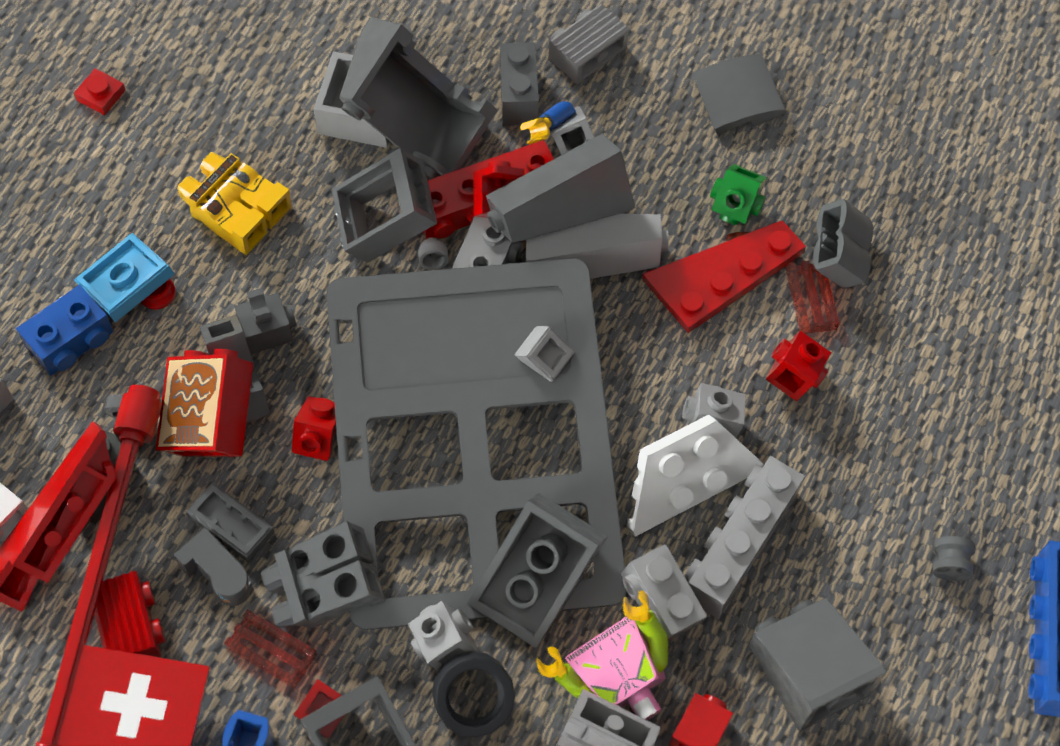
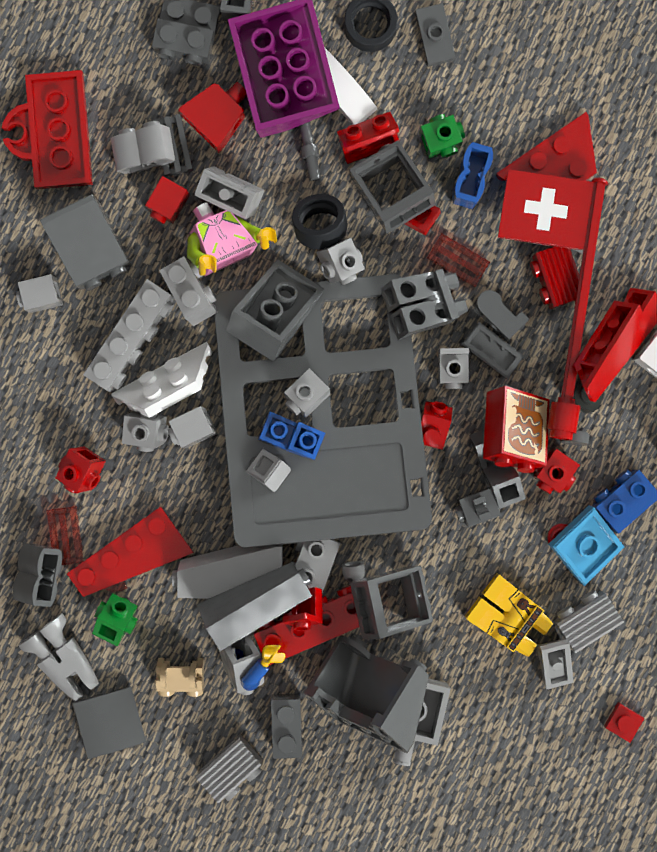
camera: 175 degrees left, 25 degrees up
(132, 194) = (587, 620): none -> light grey brick
(148, 359) = (565, 470): none -> red brick
(179, 152) = (555, 663): none -> light grey slope
(289, 509) = (449, 356): none -> light grey brick
(493, 446) = (306, 394): none -> light grey brick
(513, 396) = (291, 436): none -> blue slope
(645, 130) = (180, 678): none -> tan piece
(649, 410) = (191, 428): none -> light grey brick
(801, 156) = (63, 661): none -> light grey piece
(877, 595) = (39, 294): none -> light grey brick

